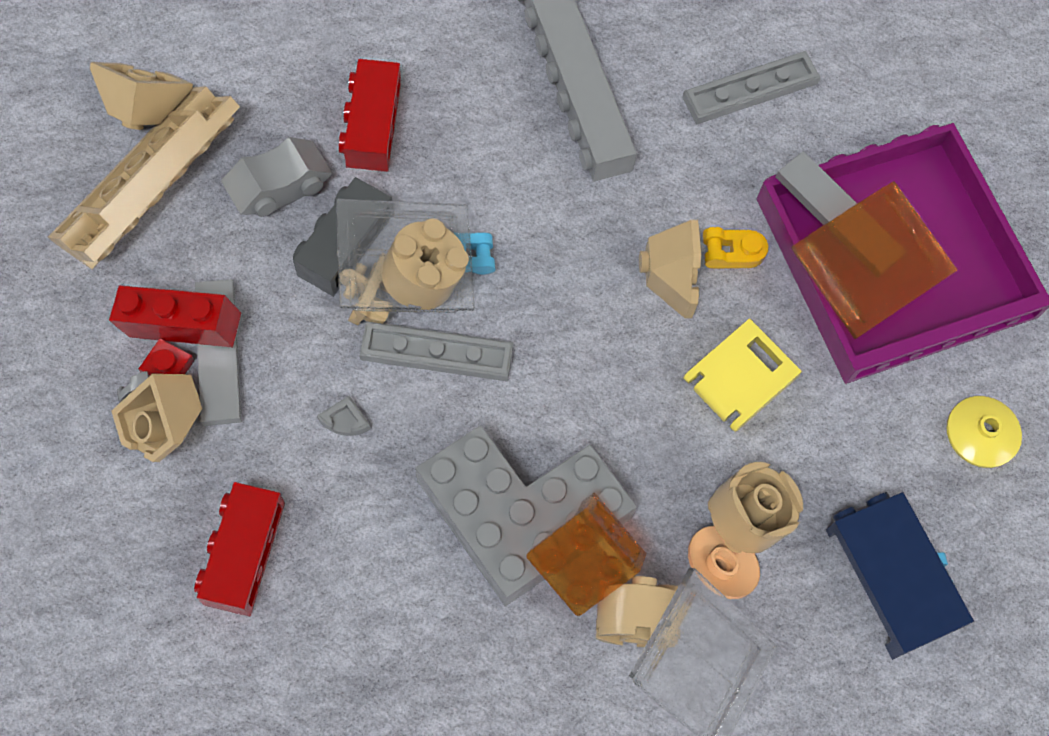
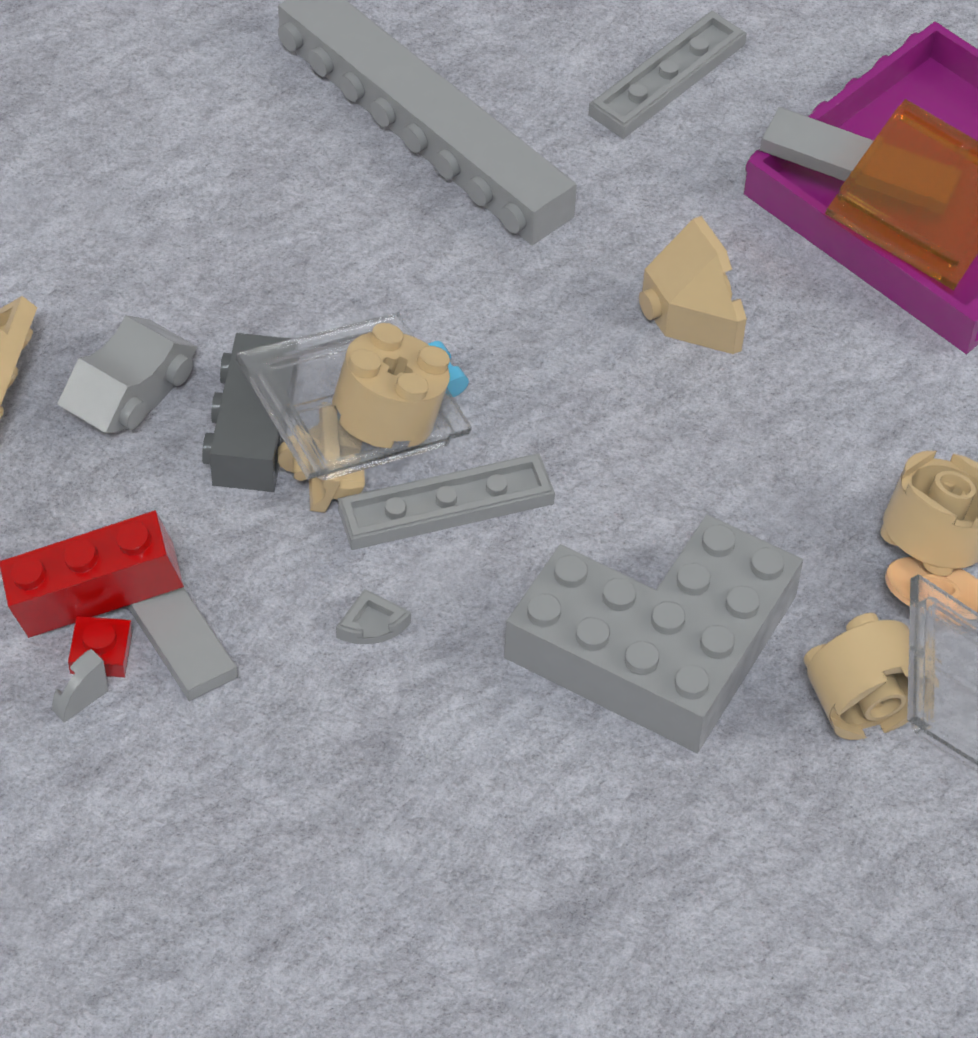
camera: 20 degrees left, 15 degrees down
(157, 415) = (127, 701): tan slope -> none
(239, 549) = (326, 812): red brick -> none
(371, 115) = (210, 264): red brick -> none
(587, 556) = (777, 629): clear orange bracket -> none
(738, 378) = (840, 389): light yellow container -> none
(747, 248) = (763, 251): yellow plate -> none

